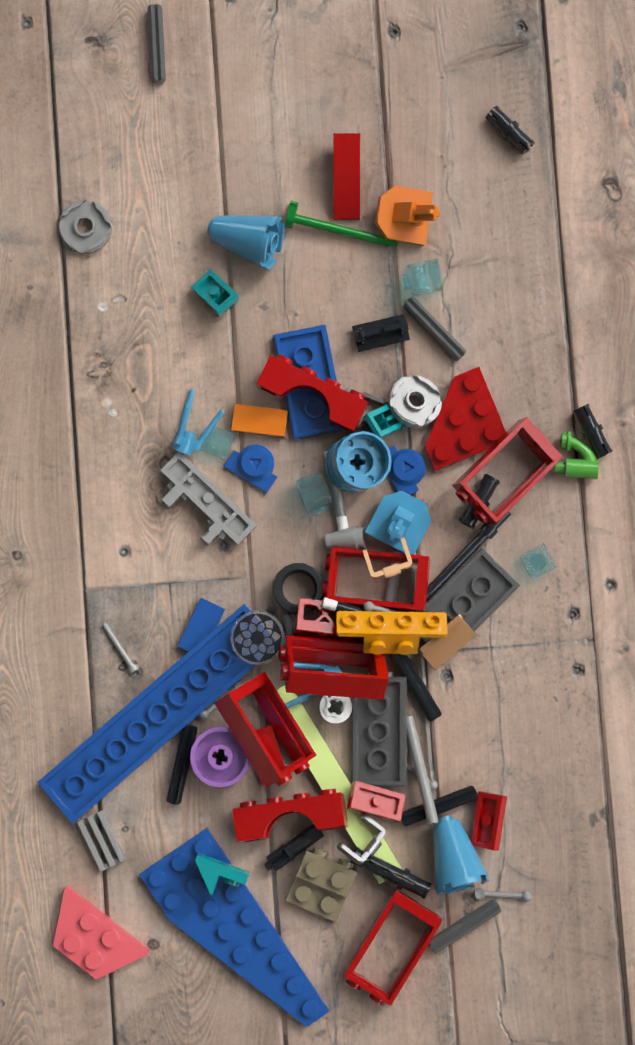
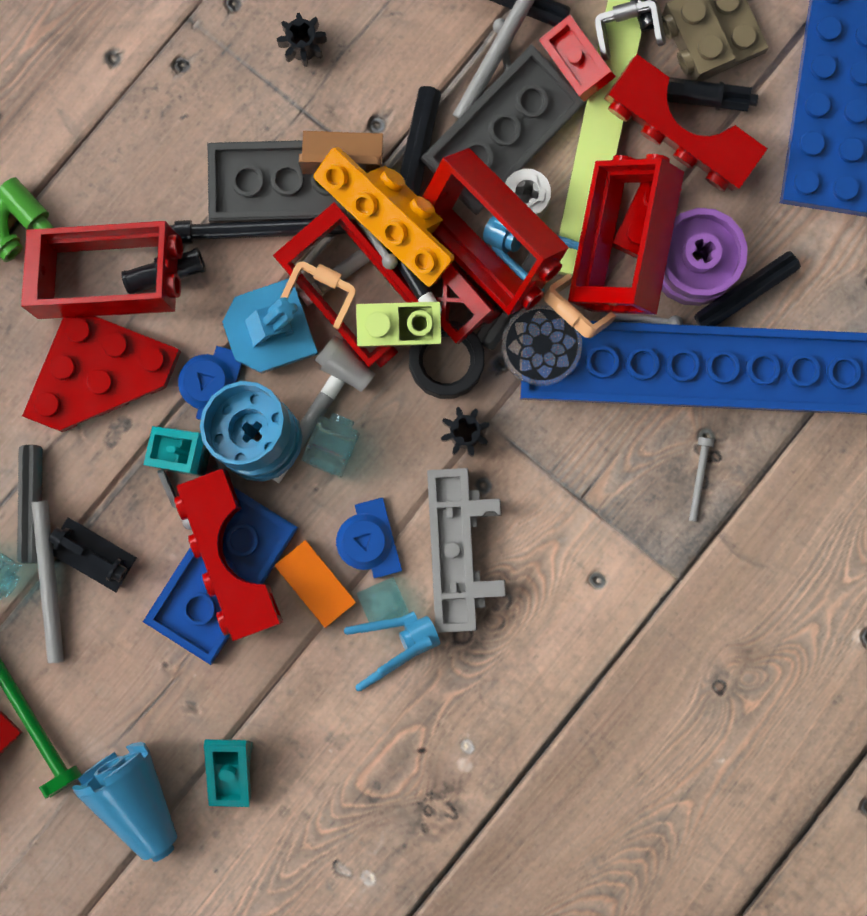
camera: 140 degrees left, 0 degrees up
(203, 622) = (587, 421): blue tile -> none
(212, 868) = (816, 142): teal slope -> none
(254, 553) = (470, 422): none -> black gear
(257, 664) = (570, 313): none -> light nougat piece
(334, 577) = (398, 324): none -> yellowish green slope
(389, 300) = (47, 582): none -> light grey bar
(406, 412) = (146, 449): tile -> none
(527, 686) = (302, 28): none -> black gear
(538, 561) = (164, 149): clear light blue plate -> none

